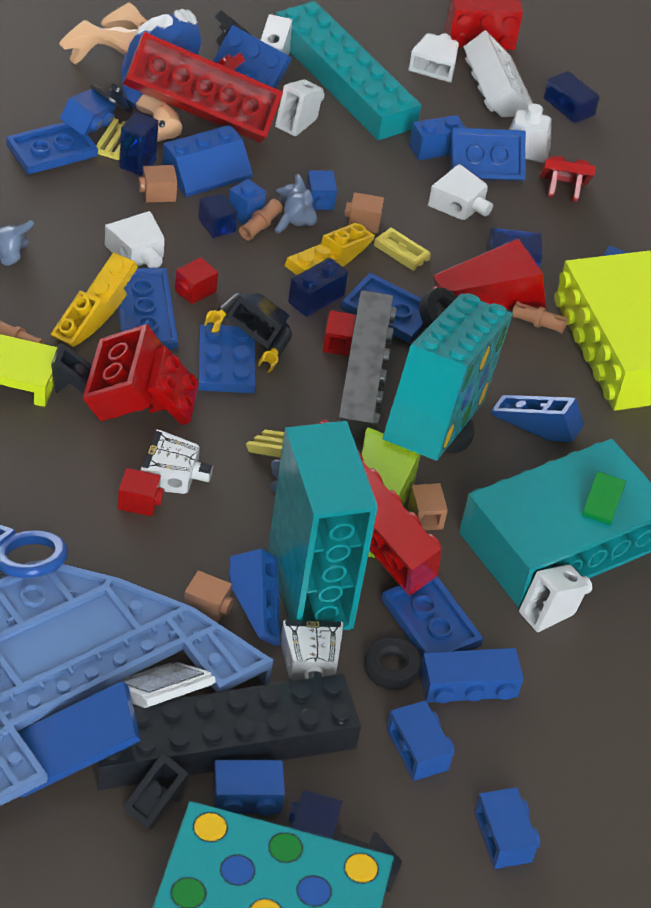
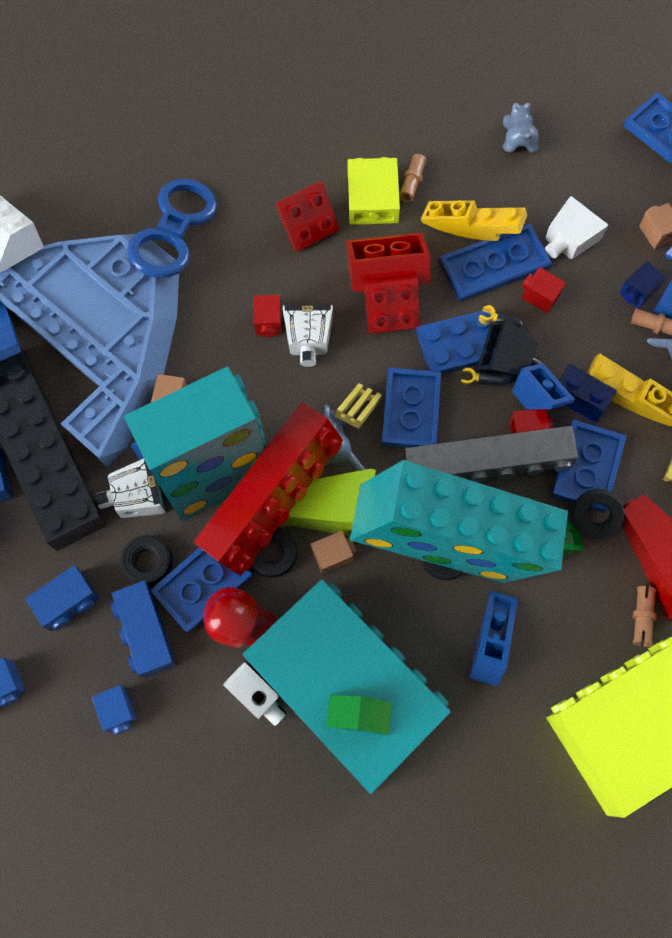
camera: 85 degrees right, 25 degrees up
(33, 424) = (307, 216): none -> red plate
(69, 369) = (381, 219): black slope -> none
(166, 683) = (55, 382): piece -> none
(280, 405) = (411, 408): none -> blue plate
(312, 307) = (540, 389): none -> blue slope
(482, 588) = (235, 618): none -> red piece
(550, 716) = (115, 710): none -> blue brick

